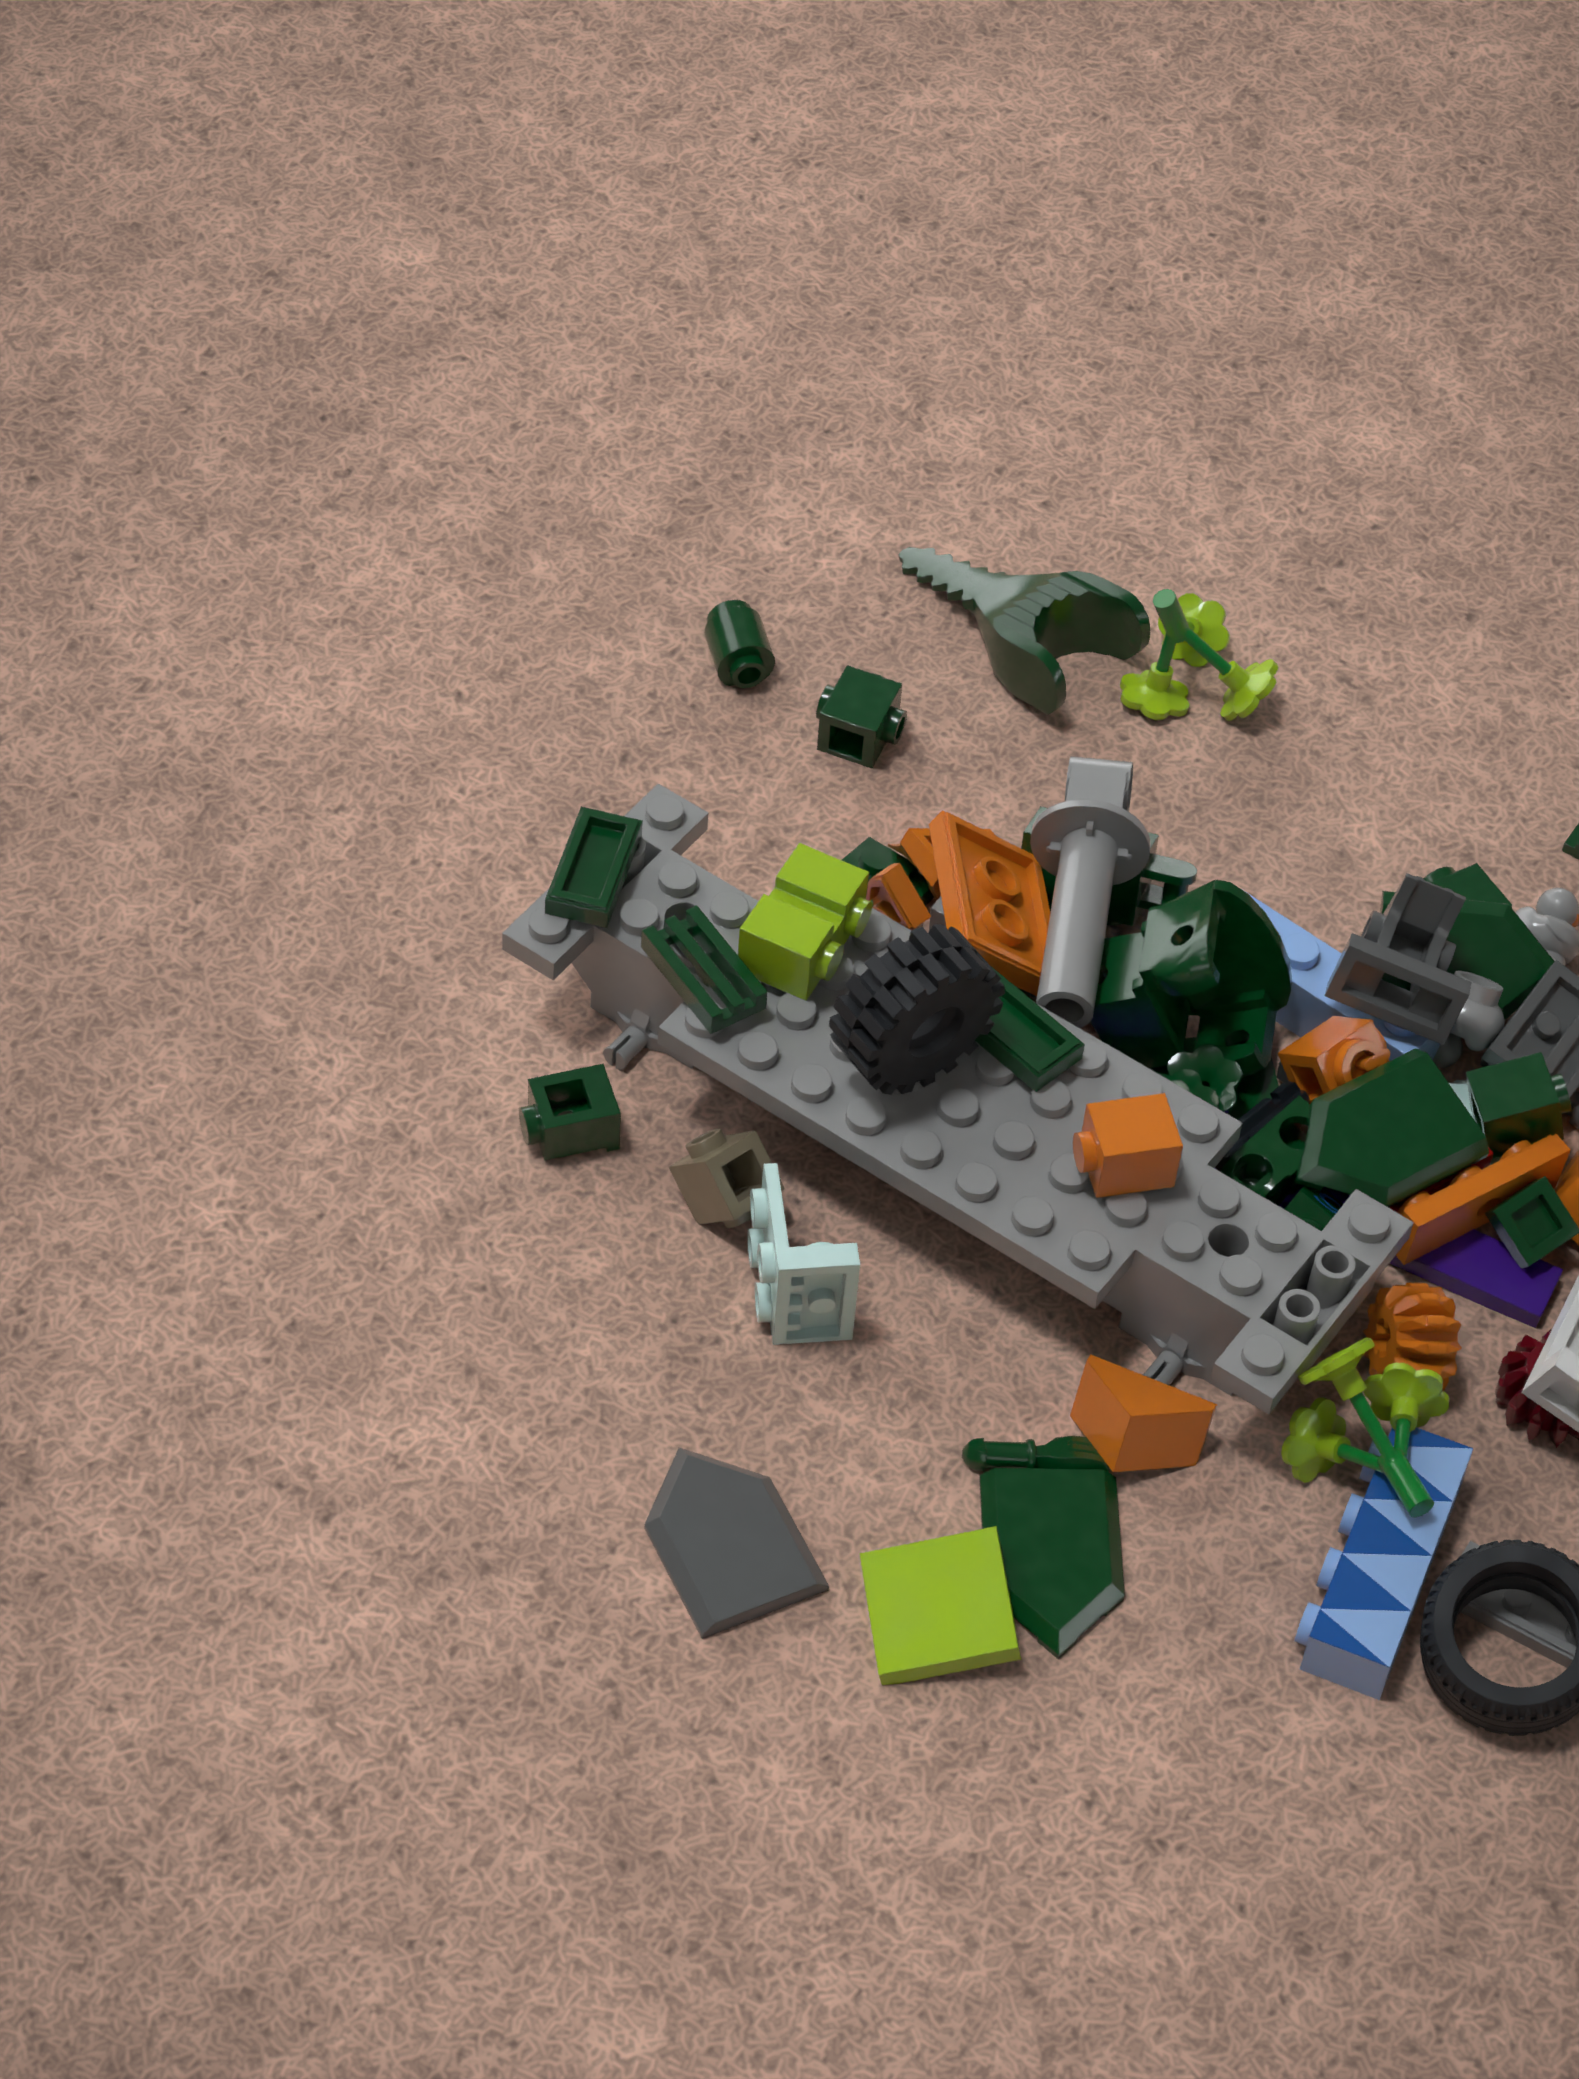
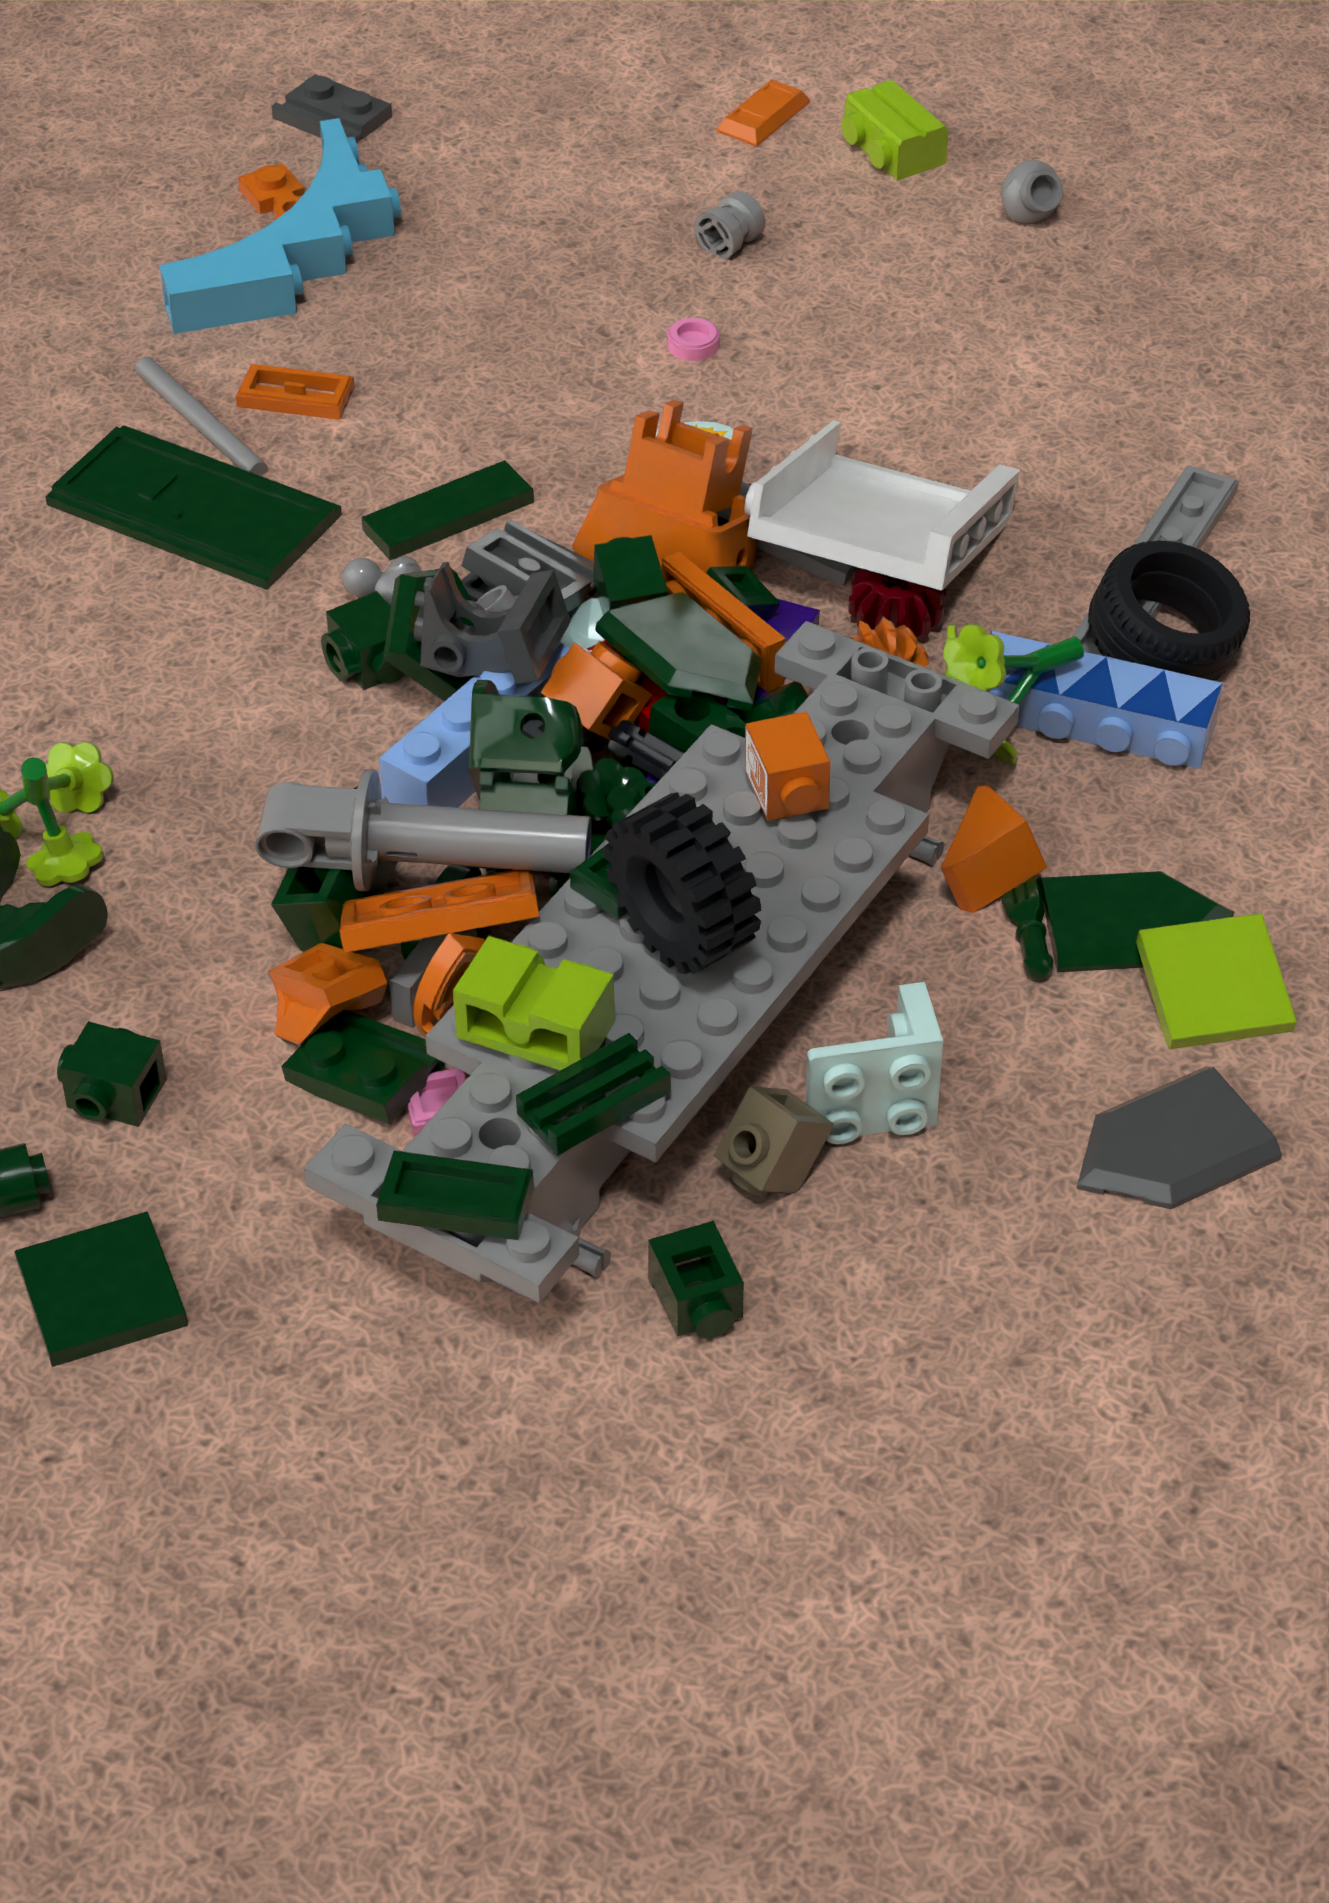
camera: 90 degrees left, 5 degrees down
(628, 720) = (100, 1288): none -> dark green tile

